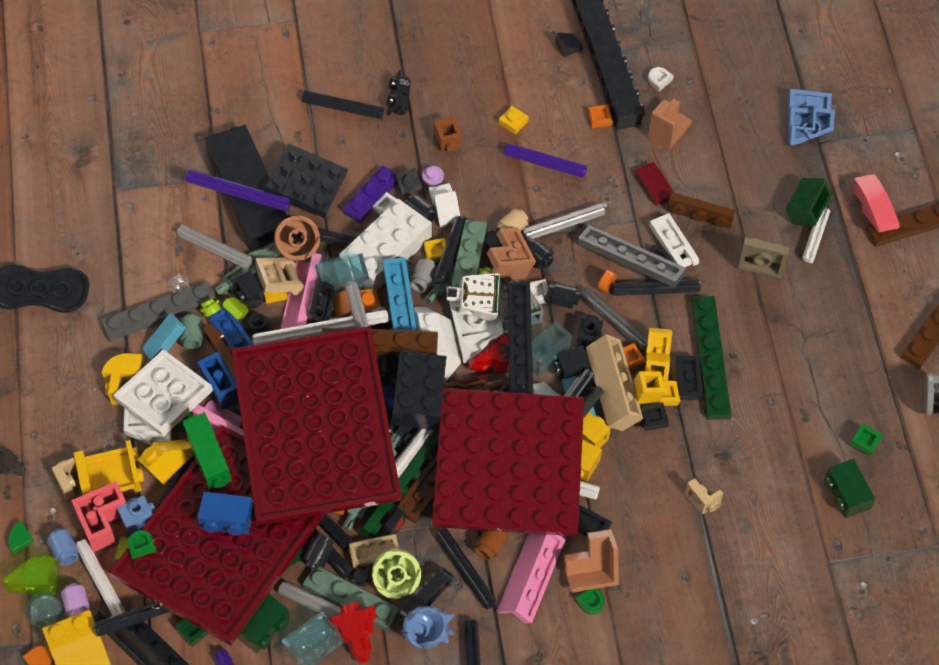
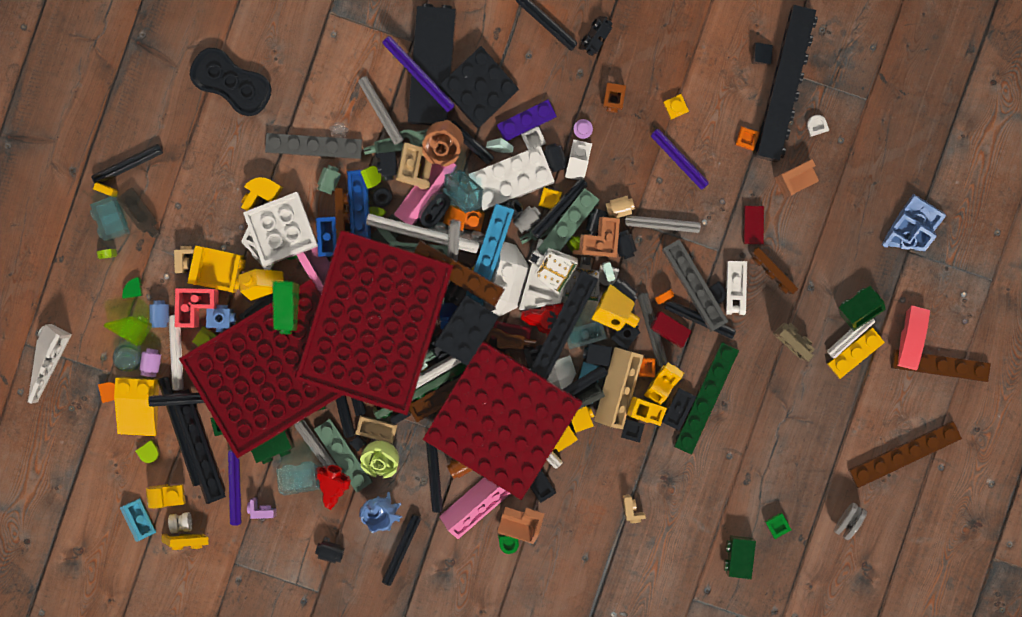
camera: 25 degrees right, 30 degrees up
(141, 544) = (209, 349): green tile -> none
(164, 336) = (303, 176): medium azure slope -> none
(210, 307) = (352, 165): lime plate -> none
(226, 513) = (277, 360): blue brick -> none
(318, 551) = (334, 414): black brick -> none
(356, 225) = (500, 145): none -> light aqua tile
(408, 181) = (560, 125): black plate -> none
(429, 592) = (394, 483): black beam -> none
(536, 279) = (608, 271): none -> light aqua tile
(557, 305) = (615, 309): none -> yellow torso
(632, 307) = (670, 329): none -> dark red tile
(831, 248) = (855, 353): none -> yellow plate

